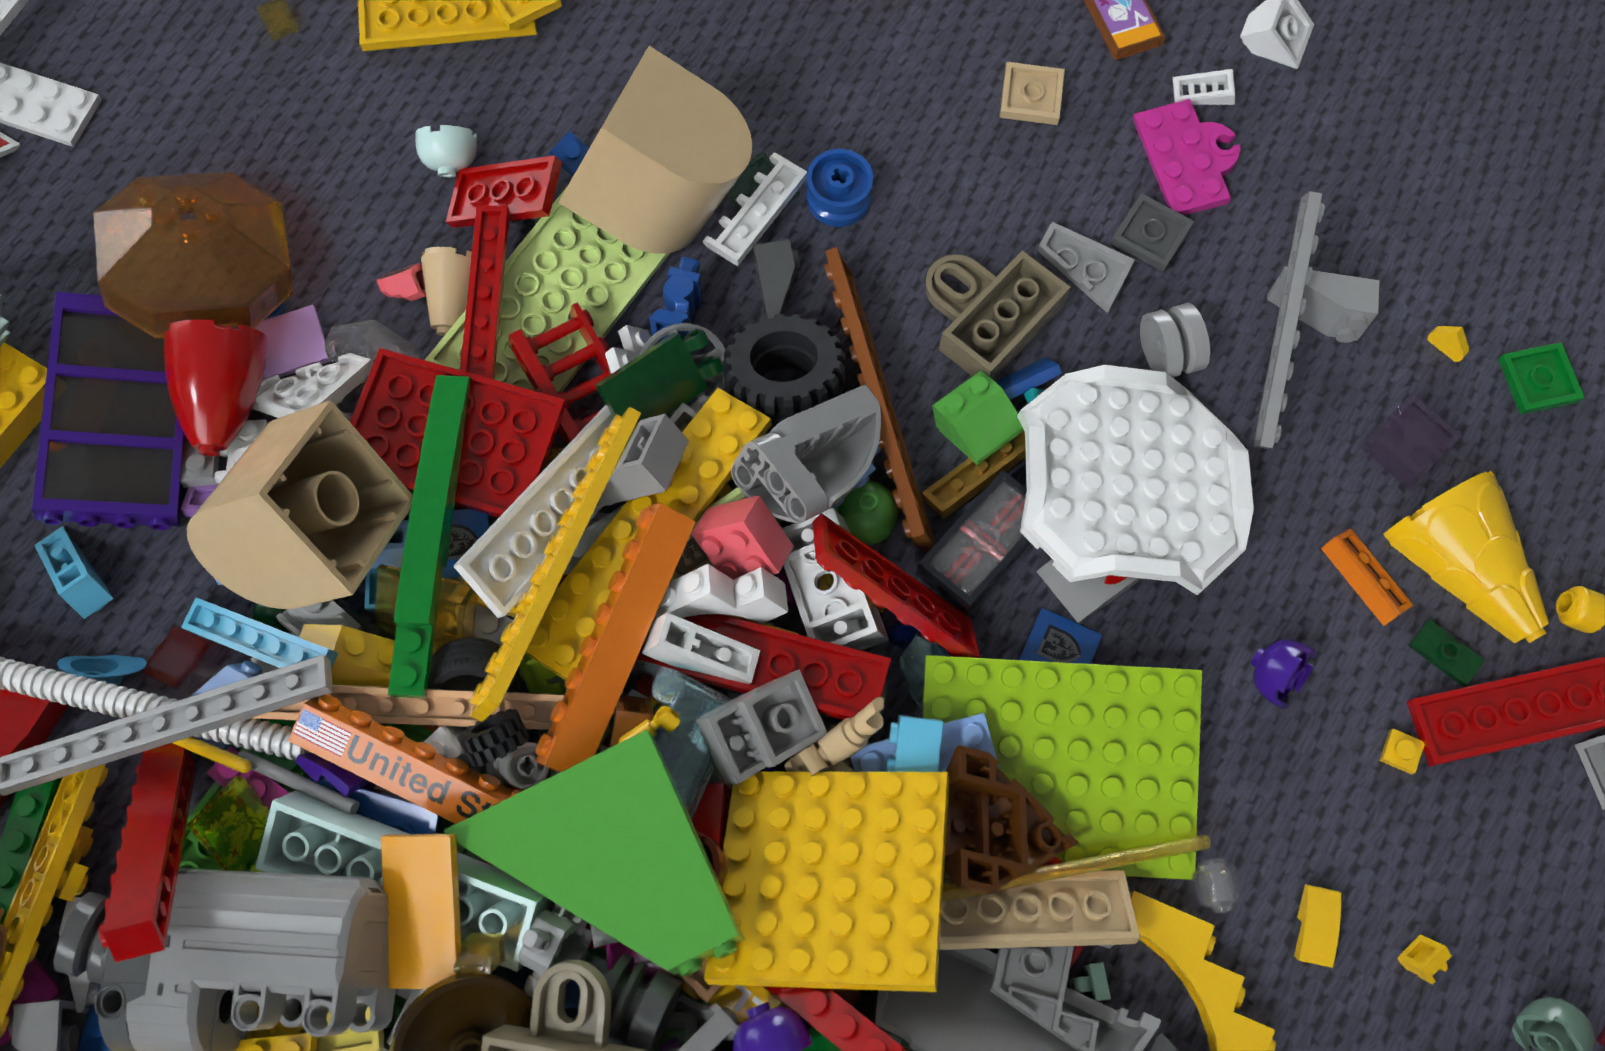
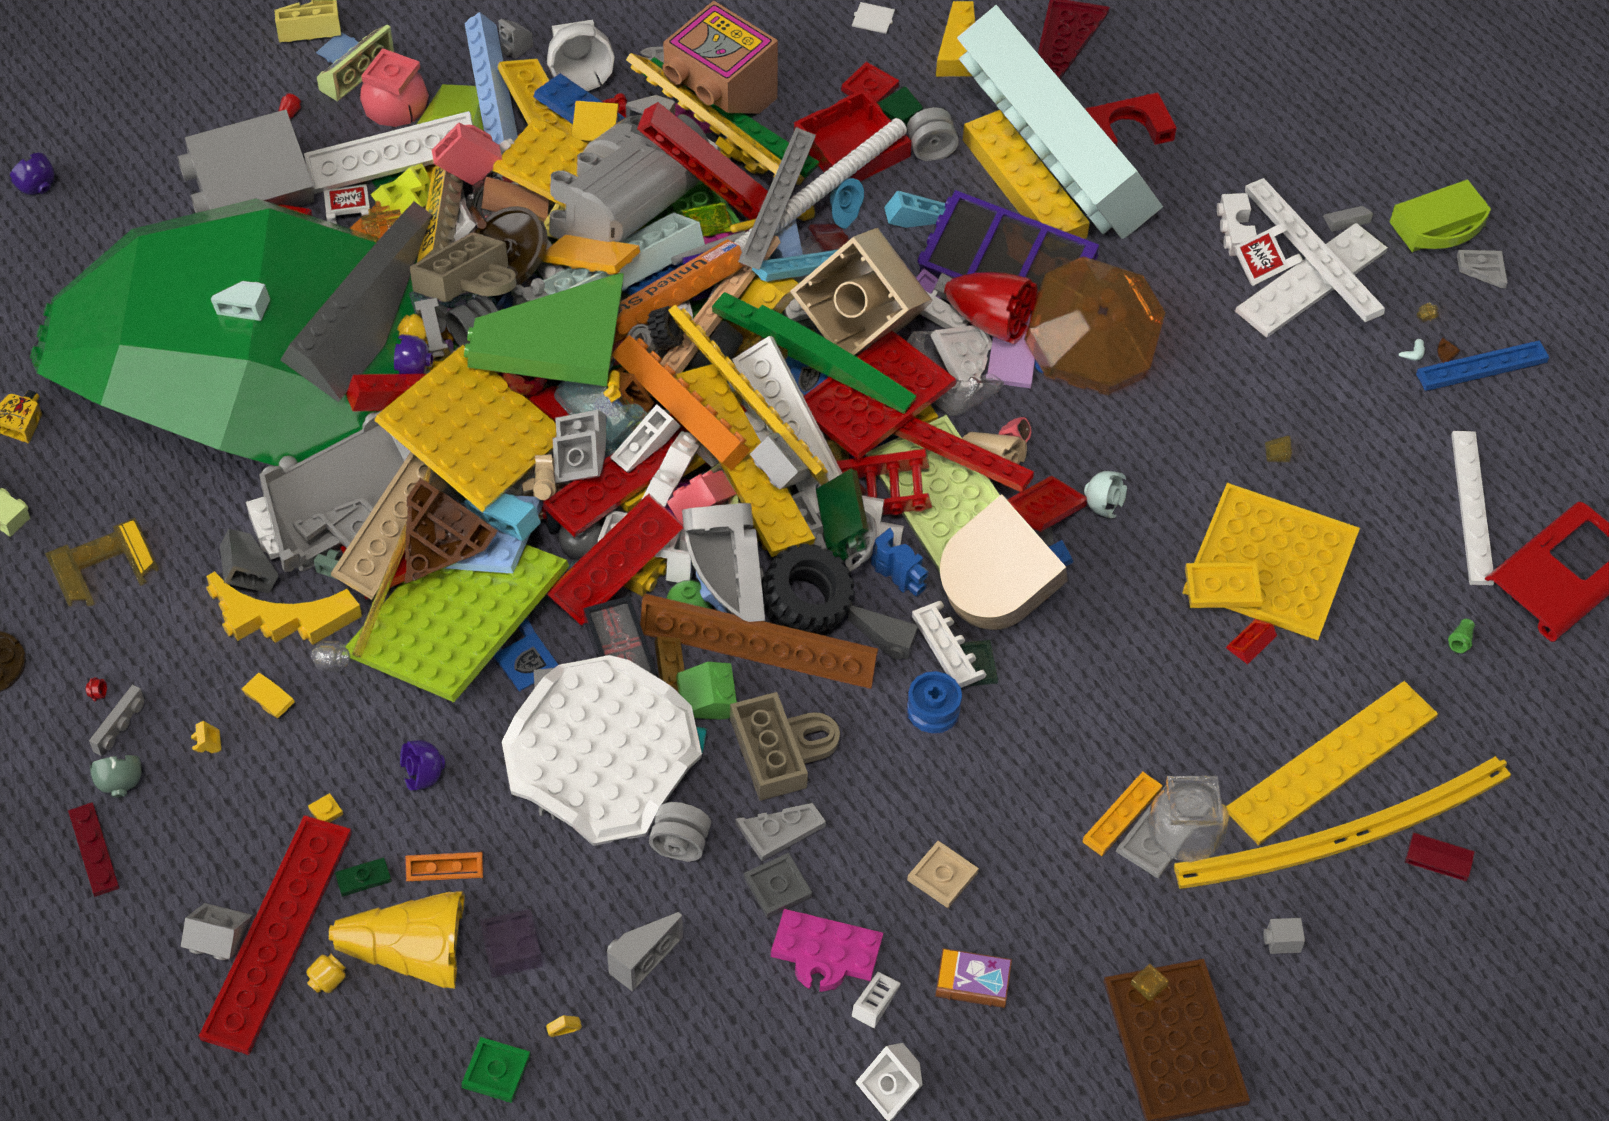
camera: 120 degrees right, 15 degrees down
(480, 953) = (550, 269): clear yellow slope -> none
(1029, 377) = (718, 740): blue tile -> none
(1291, 307) = (643, 892): light grey plate -> none

